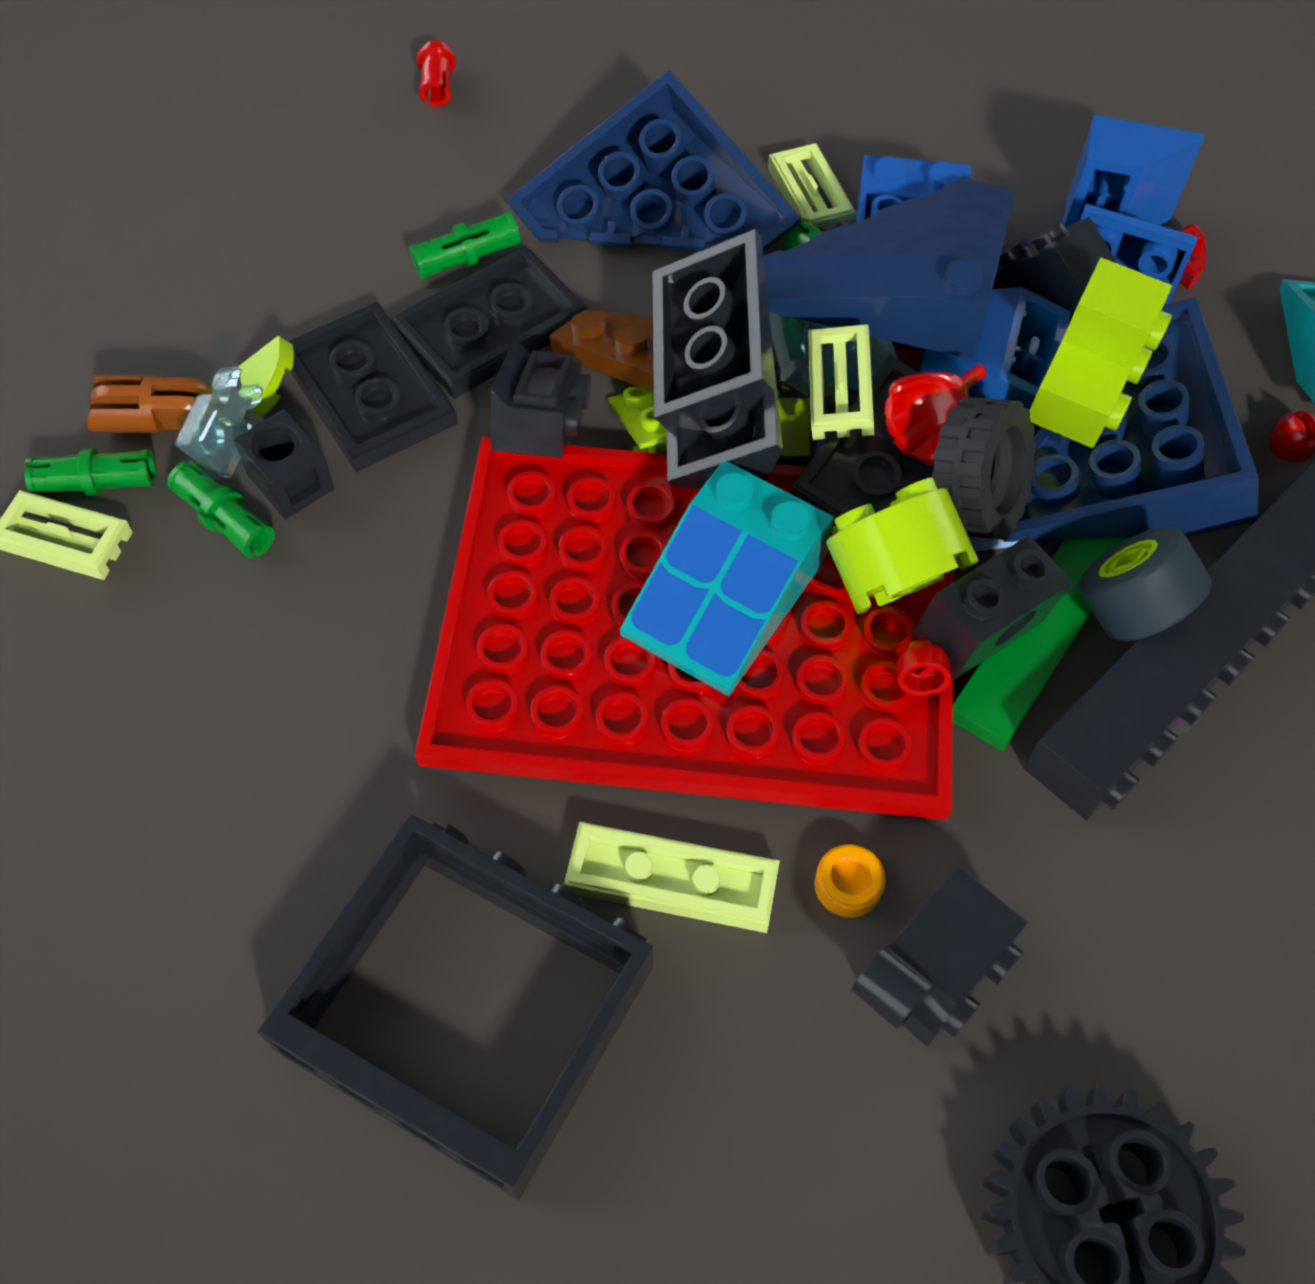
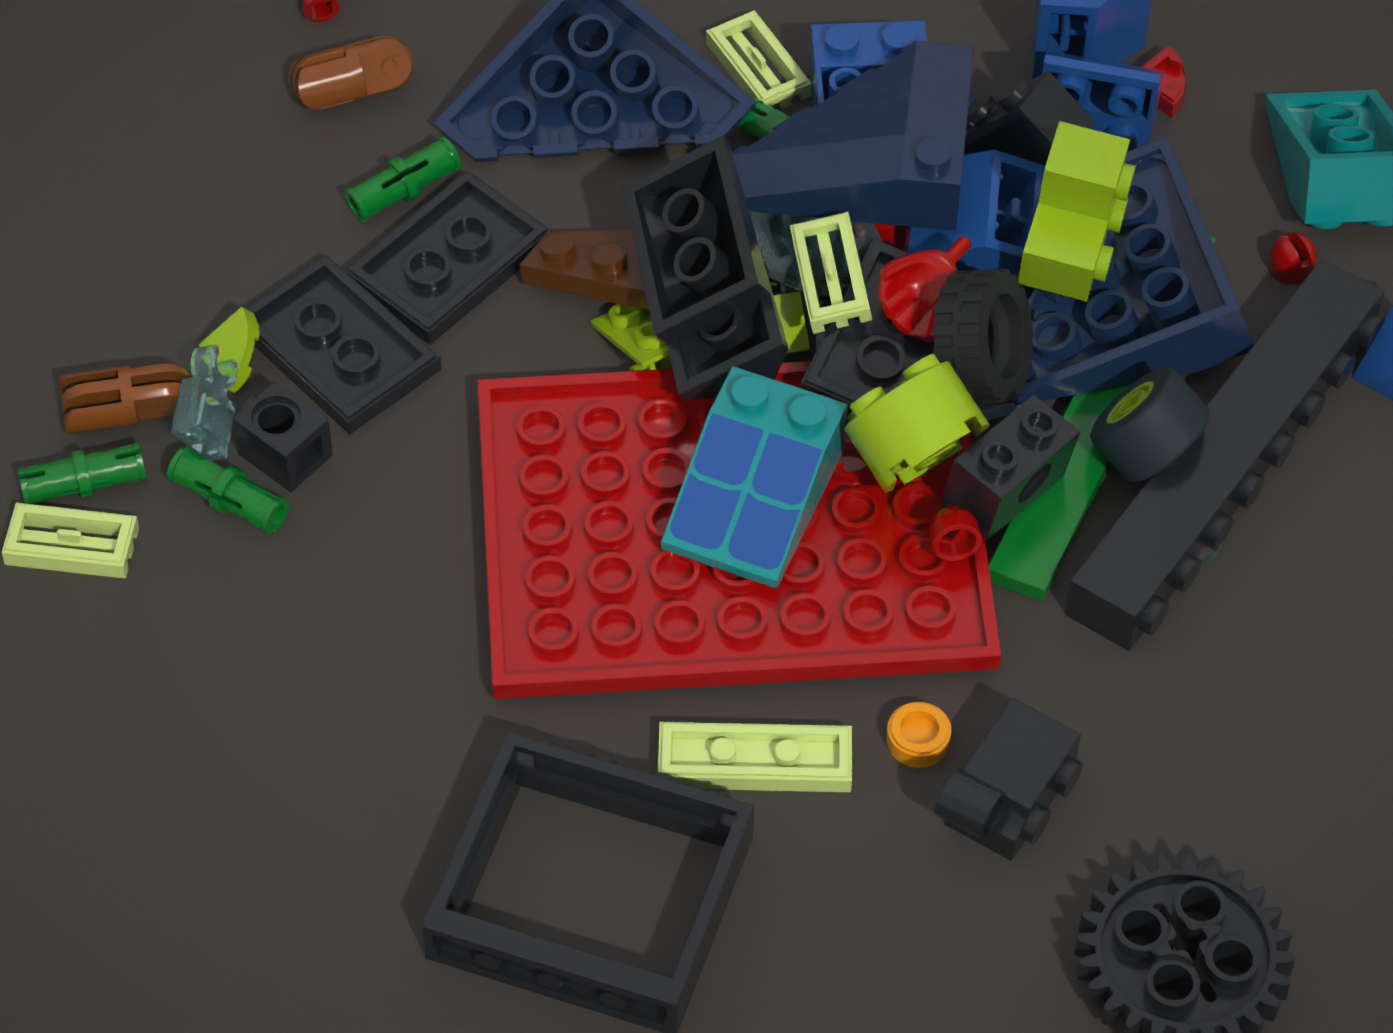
camera: 10 degrees left, 5 degrees down
(444, 147) = (351, 72): none -> dark orange arm
(537, 402) = (530, 336): black window -> none

